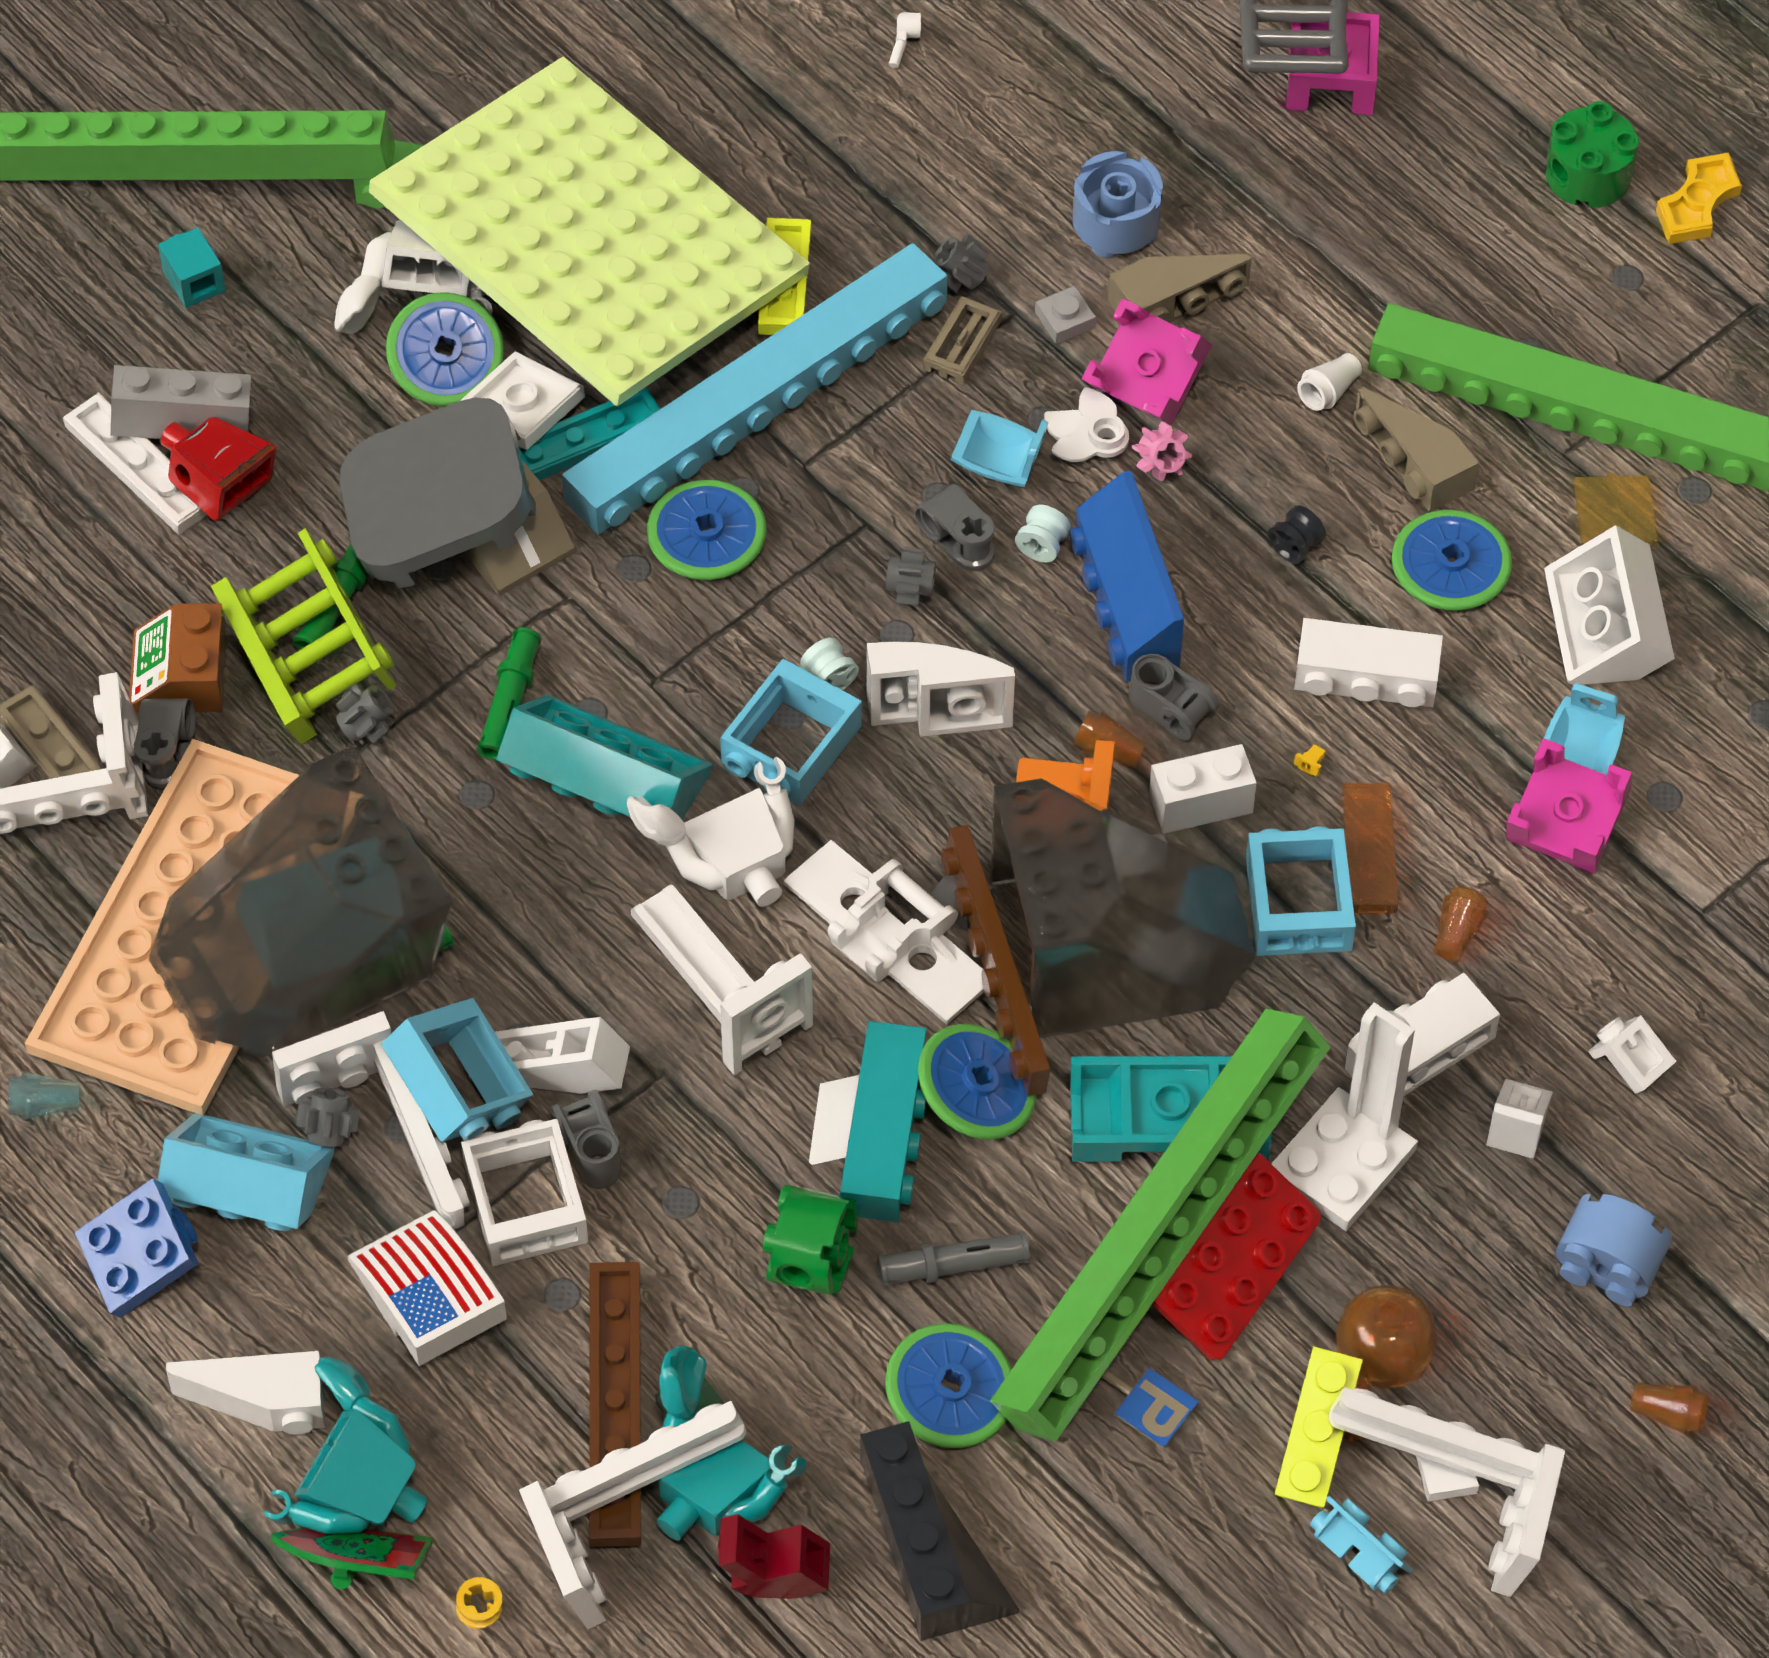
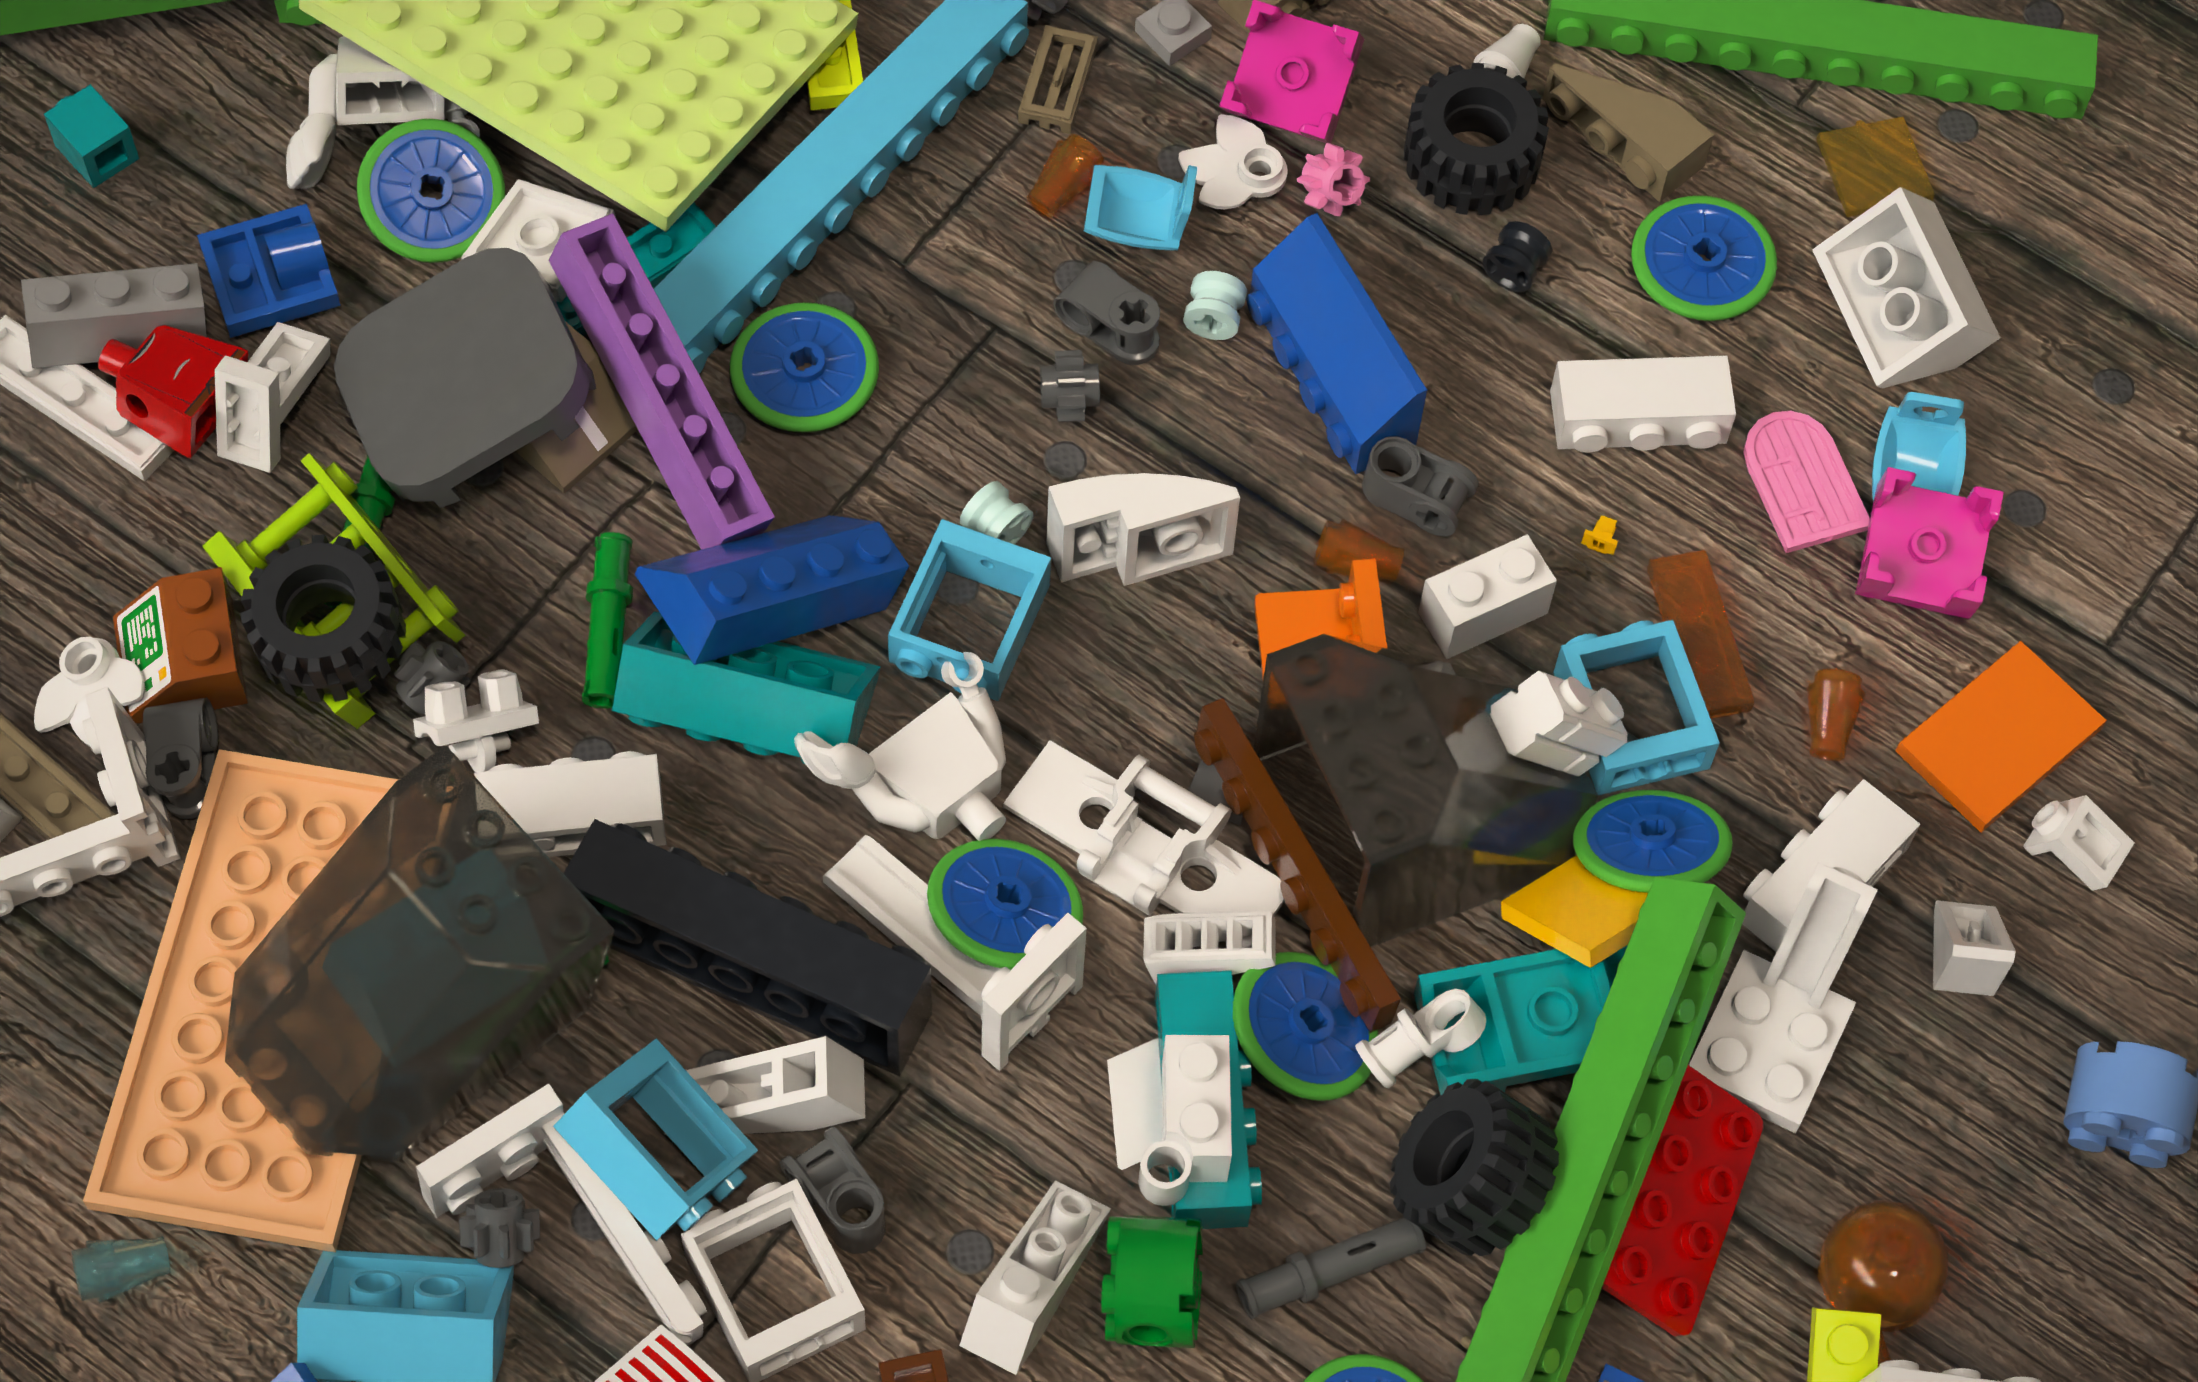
camera: 15 degrees left, 5 degrees up
(102, 659) = (85, 667): none -> white plate
(280, 479) = (261, 392): none -> white bracket
(283, 620) = (303, 580): none -> black tyre
(306, 390) = (269, 270): none -> blue plate
(412, 744) = (451, 721): none -> white hips
(462, 825) = (564, 798): none -> white brick
(563, 947) = (754, 946): none -> black brick
(585, 523) = (659, 384): none -> medium lavender brick
(642, 686) = (774, 585): none -> blue slope
(719, 1226) = (1032, 1277): none -> white slope
(754, 937) = (996, 897): none -> blue wheel
(865, 1124) = (1193, 1117): none -> white hinge
(906, 1005) = (1171, 941): none -> white slope
(947, 414) = (1064, 174): none -> clear orange cone
(1075, 1199) = (1474, 1167): none -> black tyre
(1081, 1096) = (1423, 1035): none -> white connector
(1207, 1029) = (1575, 912): none -> yellow tile
(1225, 885) = (1559, 723): none -> white brick
(1286, 986) = (1652, 836): none -> blue wheel
(1293, 409) = (1483, 104): none -> black tyre
(1486, 745) = (1802, 481): none -> bright pink window
(1592, 964) = (2000, 736): none -> orange tile

